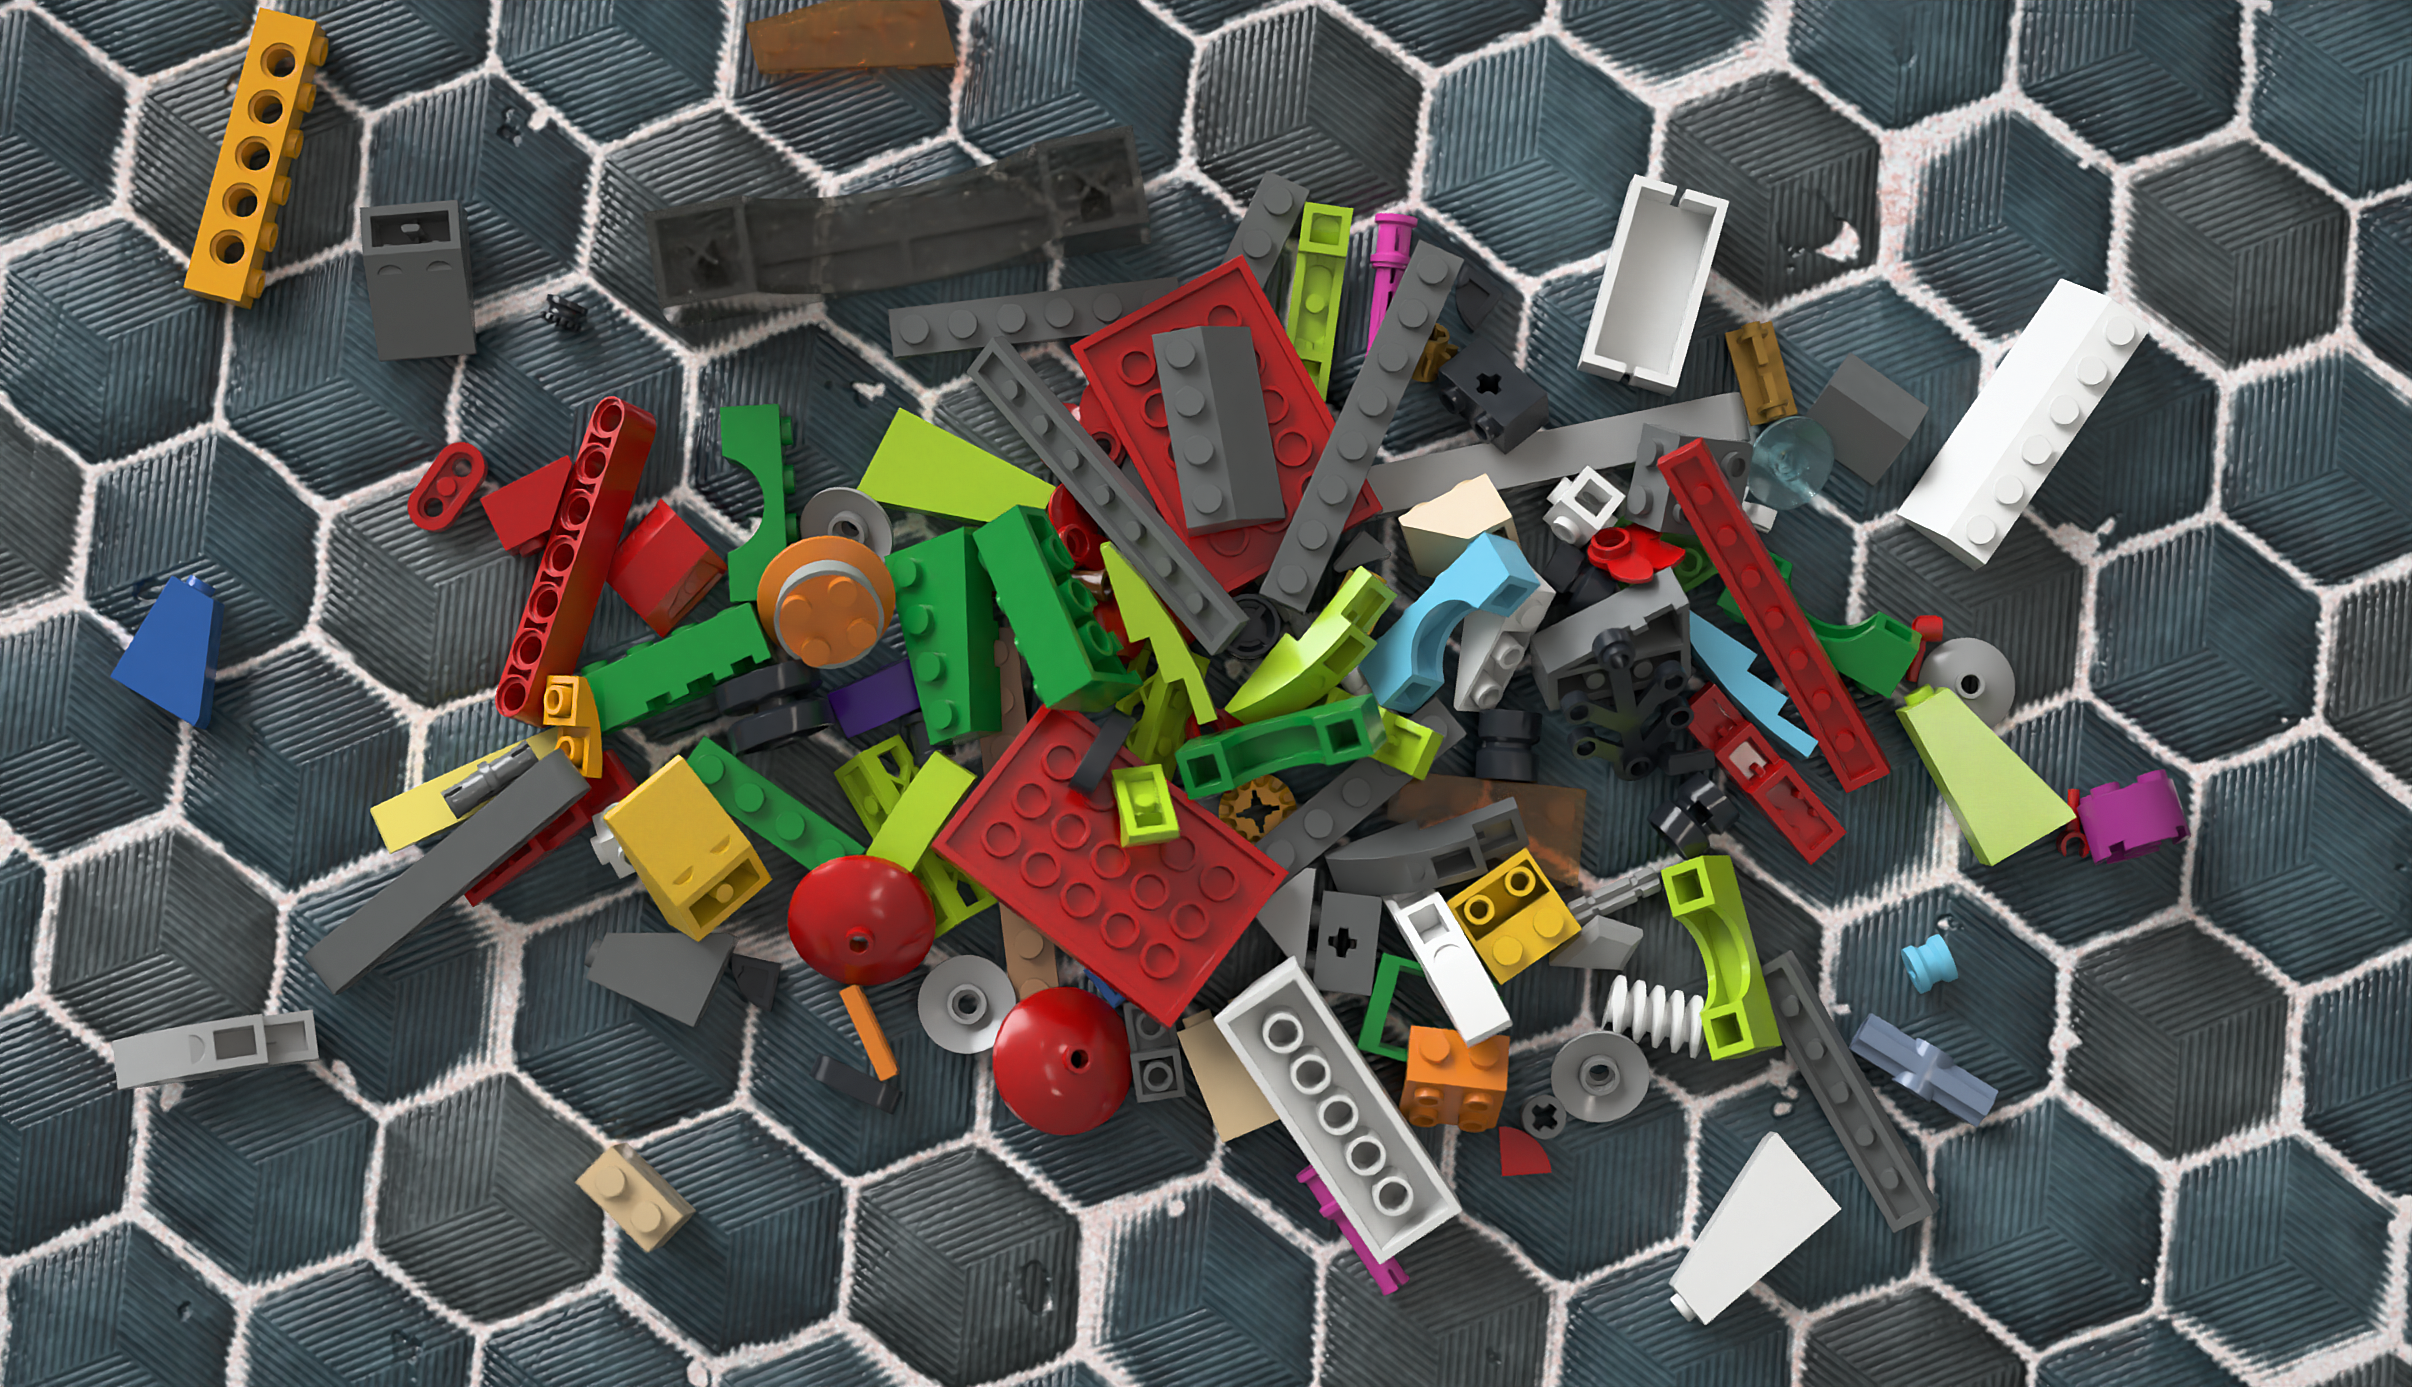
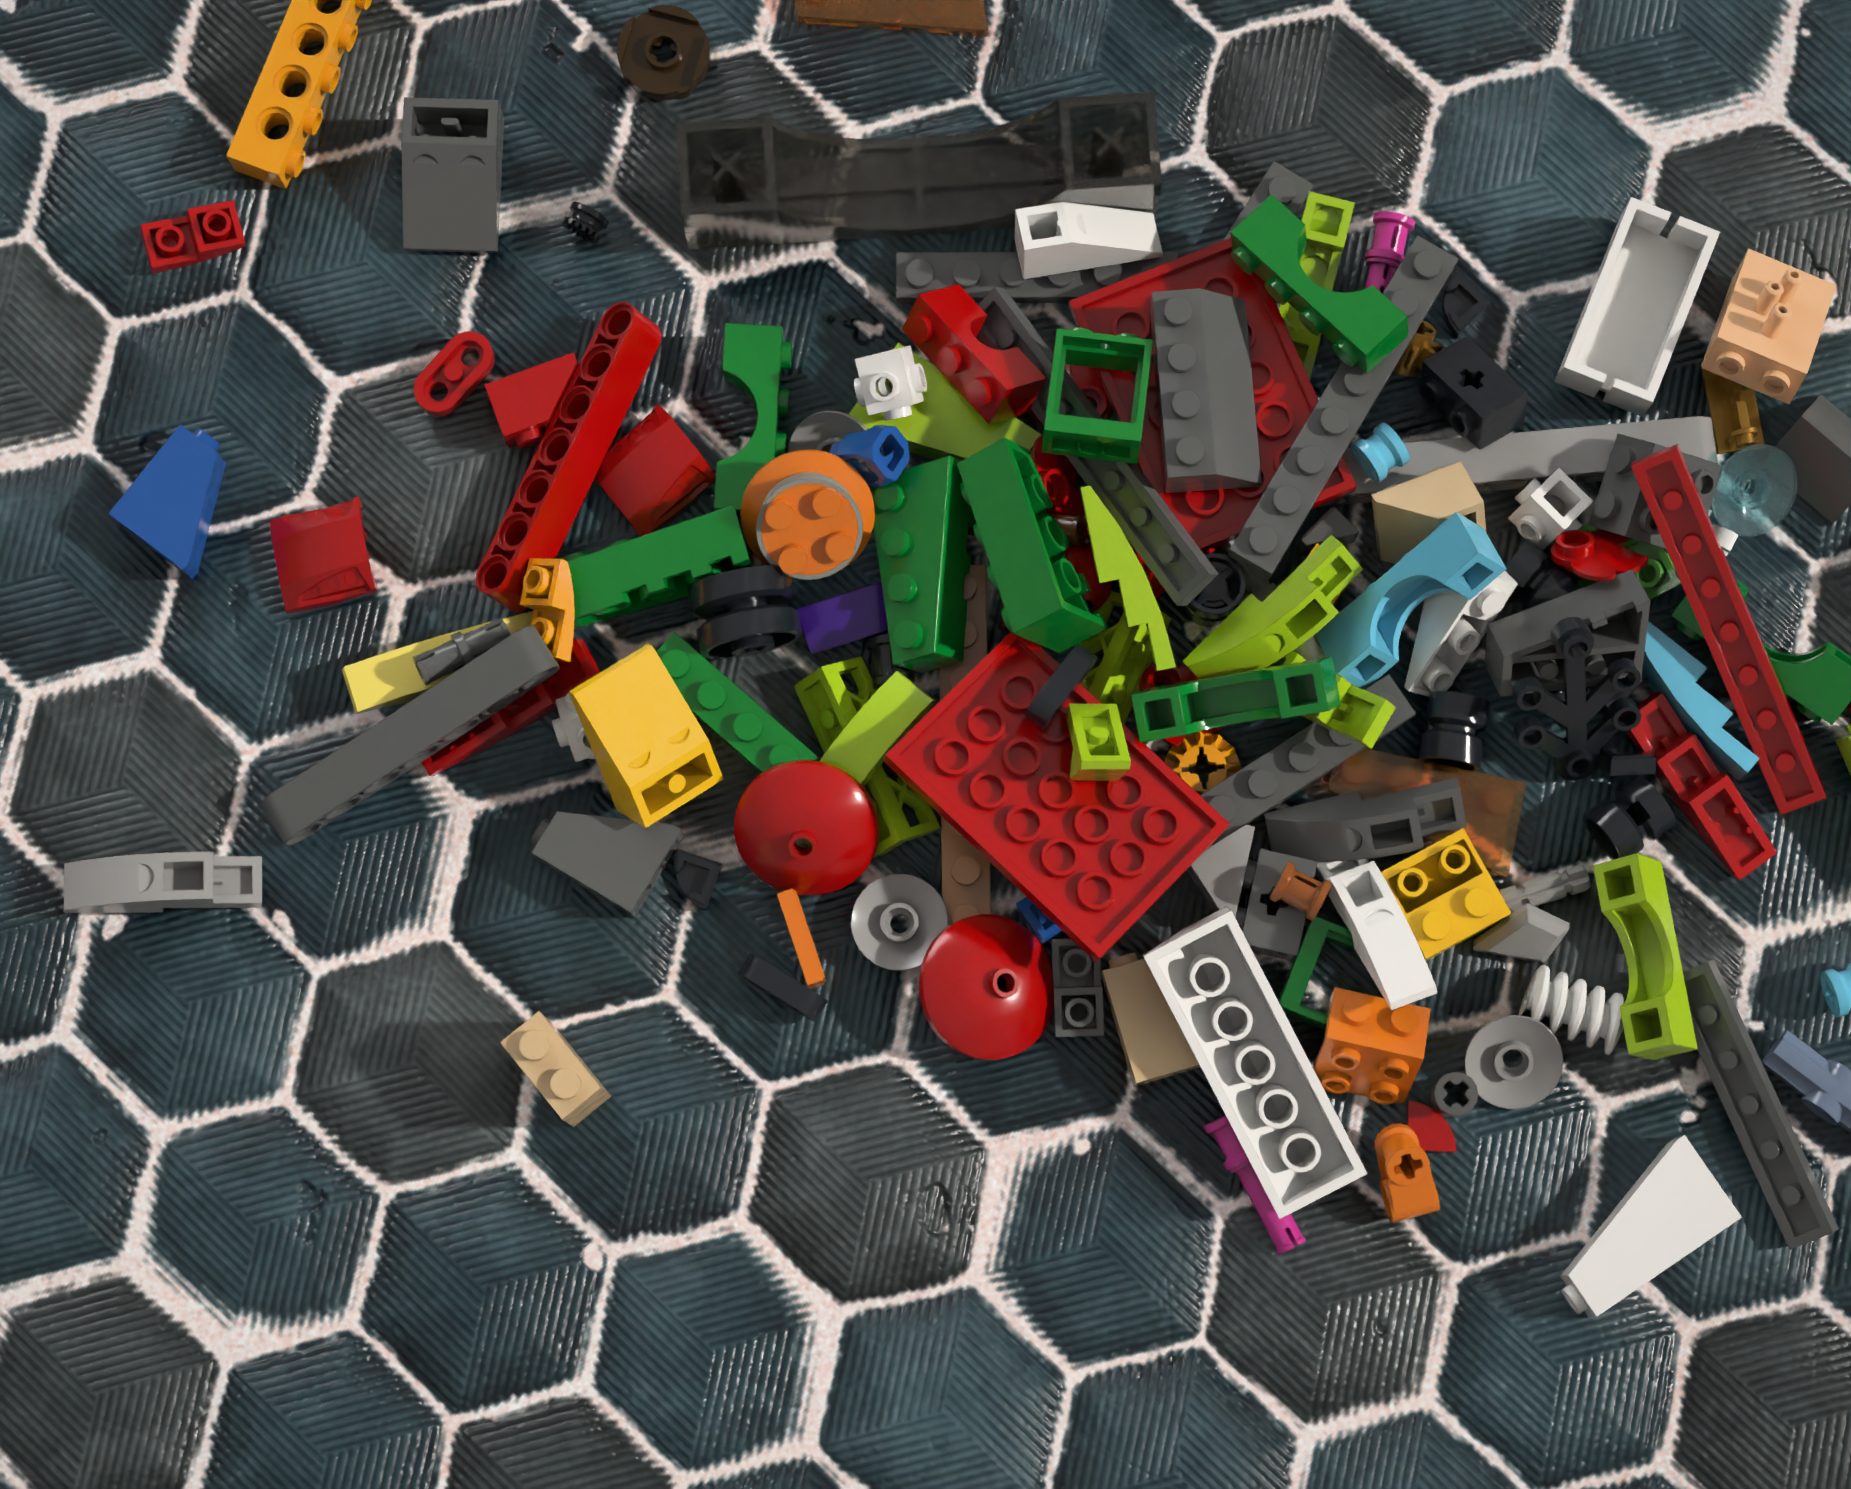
camera: 10 degrees right, 5 degrees down
(159, 373) = (193, 238): none -> red slope
(335, 692) = (322, 556): none -> red slope
(608, 101) = (650, 30): none -> dark brown plate
(888, 530) = (876, 453): none -> blue rock
(894, 455) = (873, 387): none -> white brick
(998, 439) = (991, 380): none -> red arch
(1077, 277) = (1081, 237): none -> white slope
(1107, 493) = (1092, 436): none -> green window
(1367, 344) = (1358, 323): none -> green arch
(1367, 932) = (1300, 891): none -> dark orange bush
(1403, 470) = (1380, 452): none -> medium azure wheel
(1501, 1201) = (1404, 1174): none -> orange piece
(1788, 293) = (1769, 326): none -> light nougat piece

